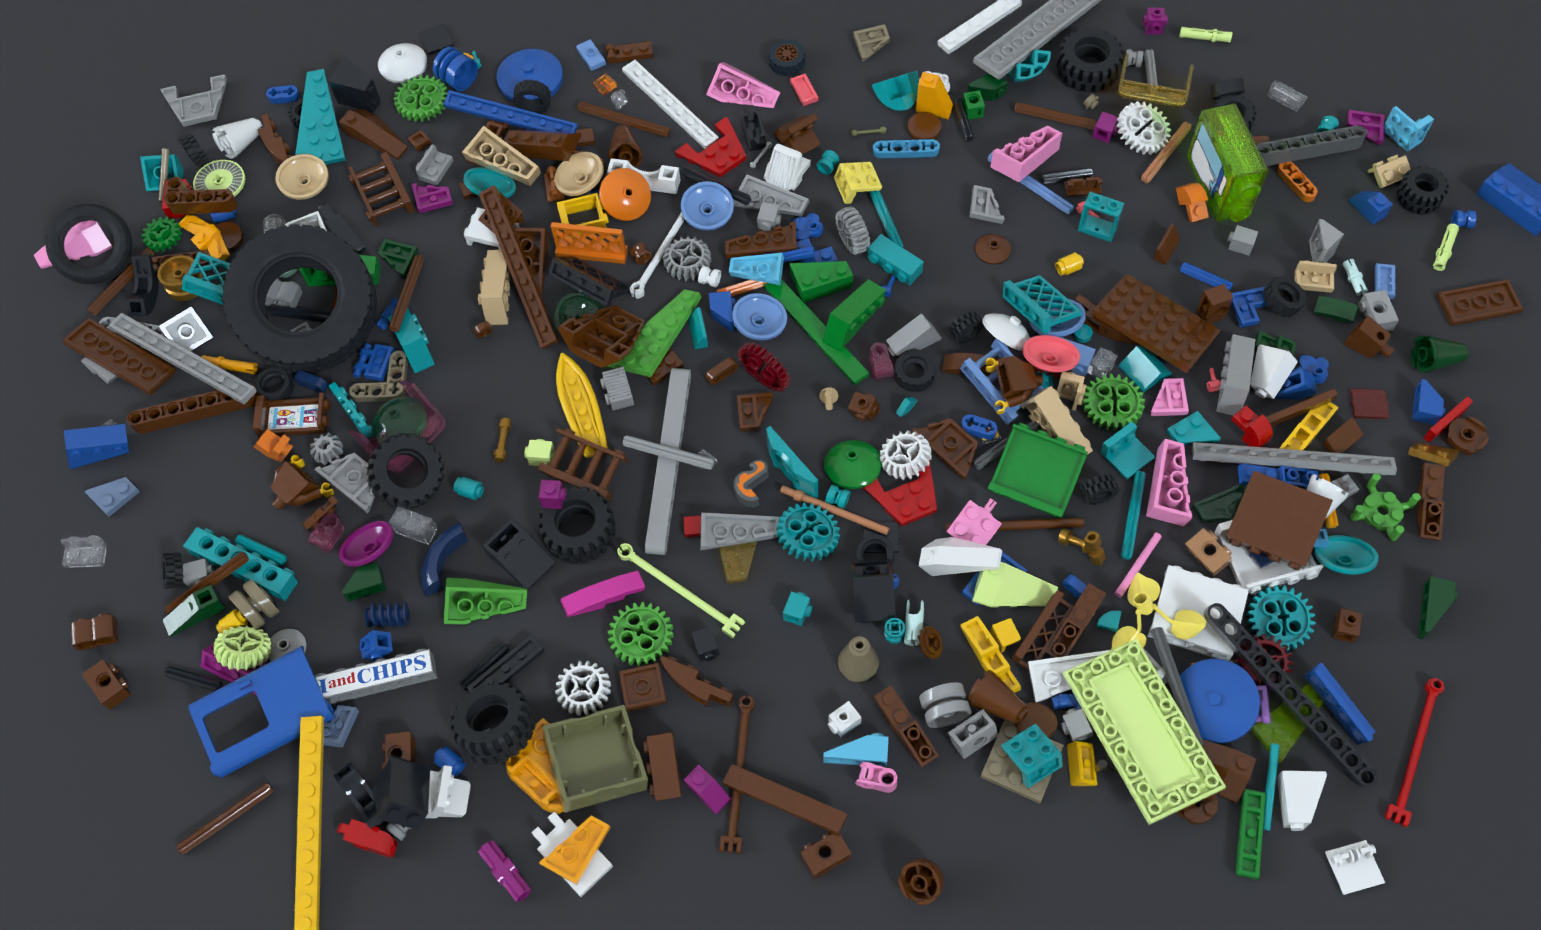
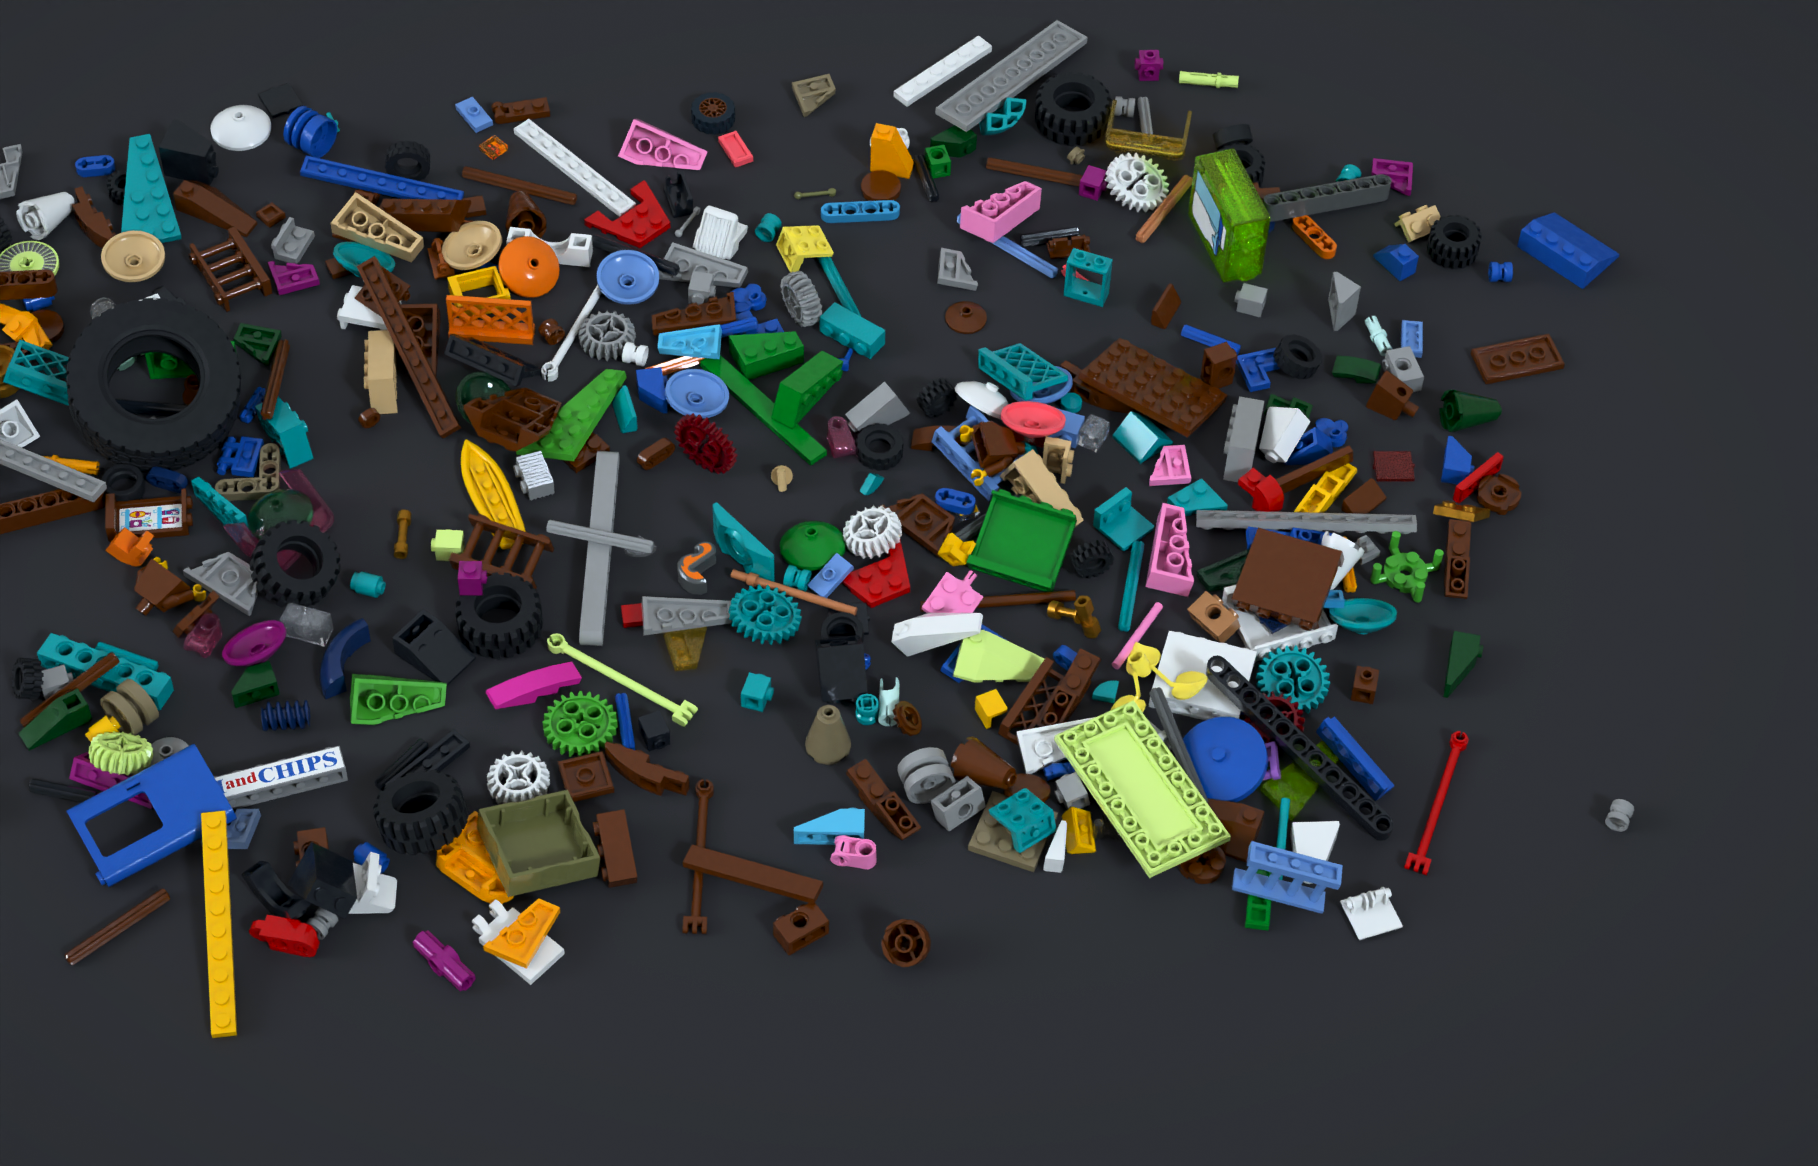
camera: 10 degrees left, 10 degrees down
(283, 294) = (126, 385): light grey brick -> none
(326, 448) = (194, 549): light grey gear -> none
(376, 645) = (276, 745): blue brick -> none
(420, 98) = (256, 164): bright green gear -> none
(529, 65) = (398, 126): blue dish -> none
(618, 98) = (512, 162): clear plate -> none
(680, 633) = (625, 720): none -> blue axle
(706, 789) = (664, 871): magenta slope -> none
(753, 409) = (694, 493): reddish brown wing -> none
(799, 134) = (733, 196): reddish brown piece -> none
(844, 719) = (815, 798): white brick -> none
(864, 406) = (822, 484): reddish brown brick -> none
(867, 496) = (830, 576): none -> medium blue plate
(898, 92) = (848, 148): teal brick -> none
(979, 475) = (955, 550): none -> yellow panel
(988, 652) = (971, 722): yellow slope -> none
(1061, 790) = (1055, 856): none -> white slope
(1069, 264) = (1054, 330): yellow brick -> none
(1131, 402) = (1091, 475): bright green gear -> none
(1194, 198) = (1195, 256): orange brick -> none
(1214, 383) = (1218, 452): coral hand -> none
(1280, 835) = (1292, 865): none -> medium blue fence
(1287, 95) = (1303, 144): clear panel -> none
(1315, 276) = (1333, 335): tan bracket -> none
(1405, 130) = (1436, 180): medium azure bracket -> none
(1444, 252) = (1478, 307): yellowish green pin -> none

